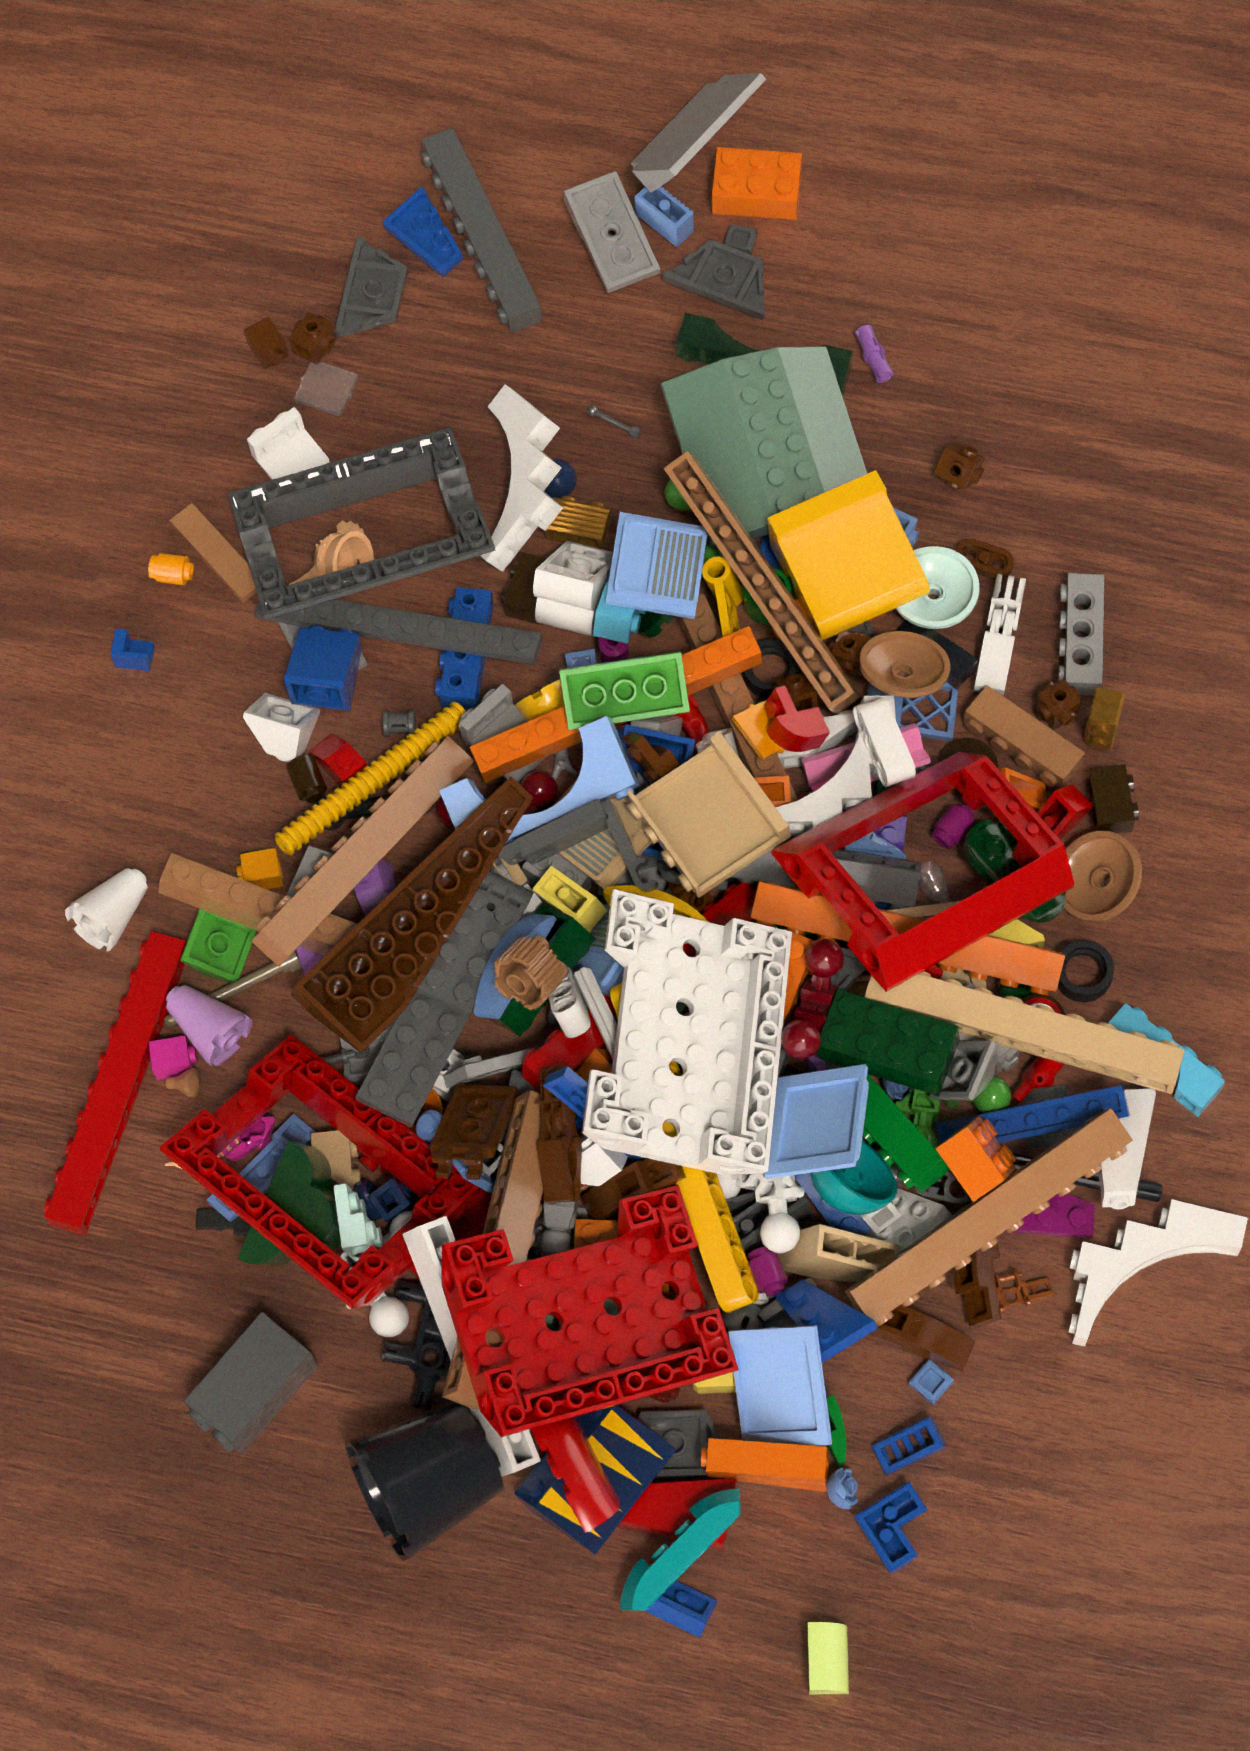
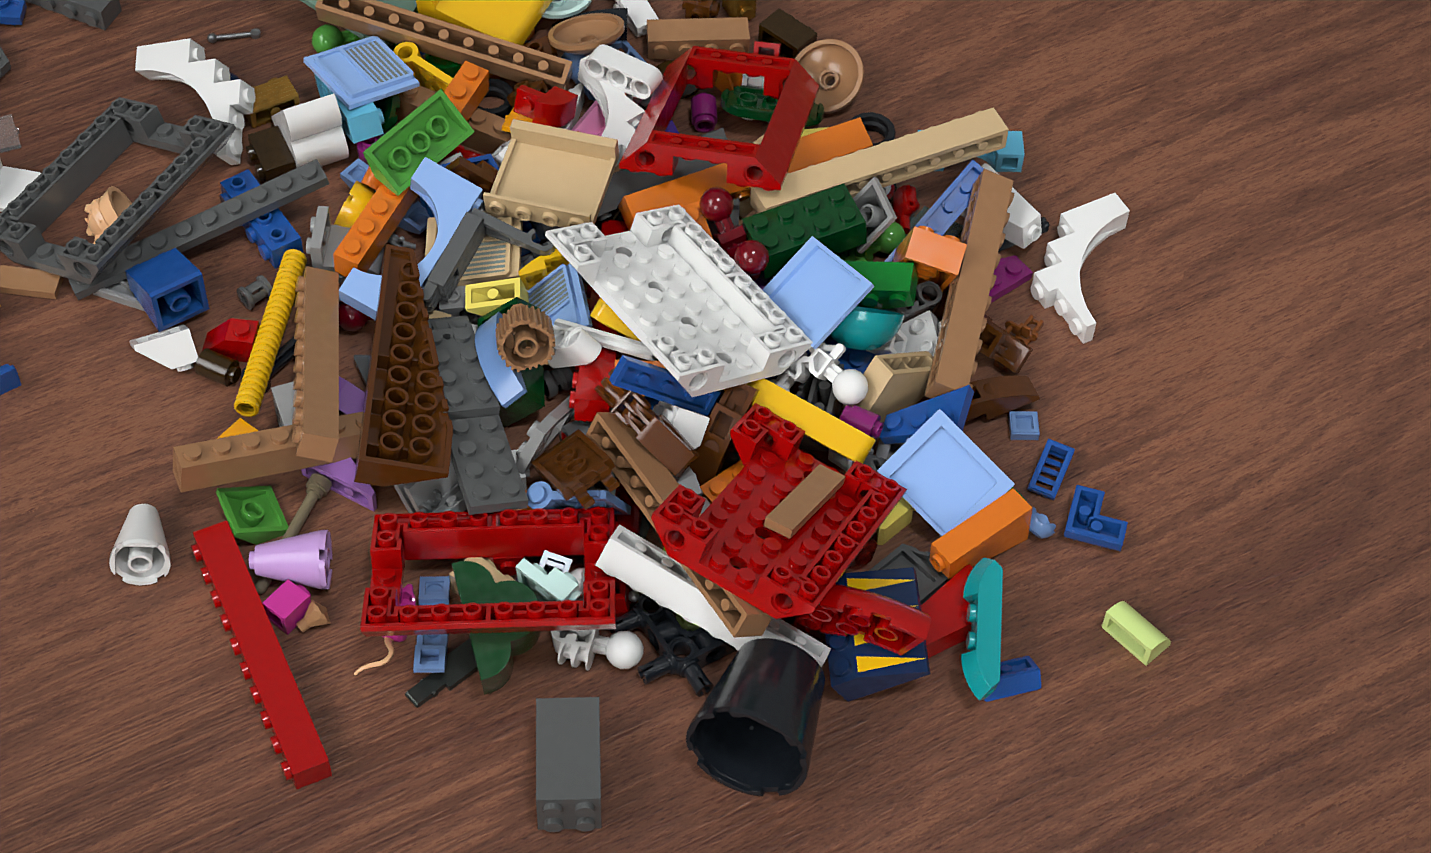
camera: 50 degrees left, 15 degrees down
(623, 1316) = (804, 501): none -> medium nougat tile

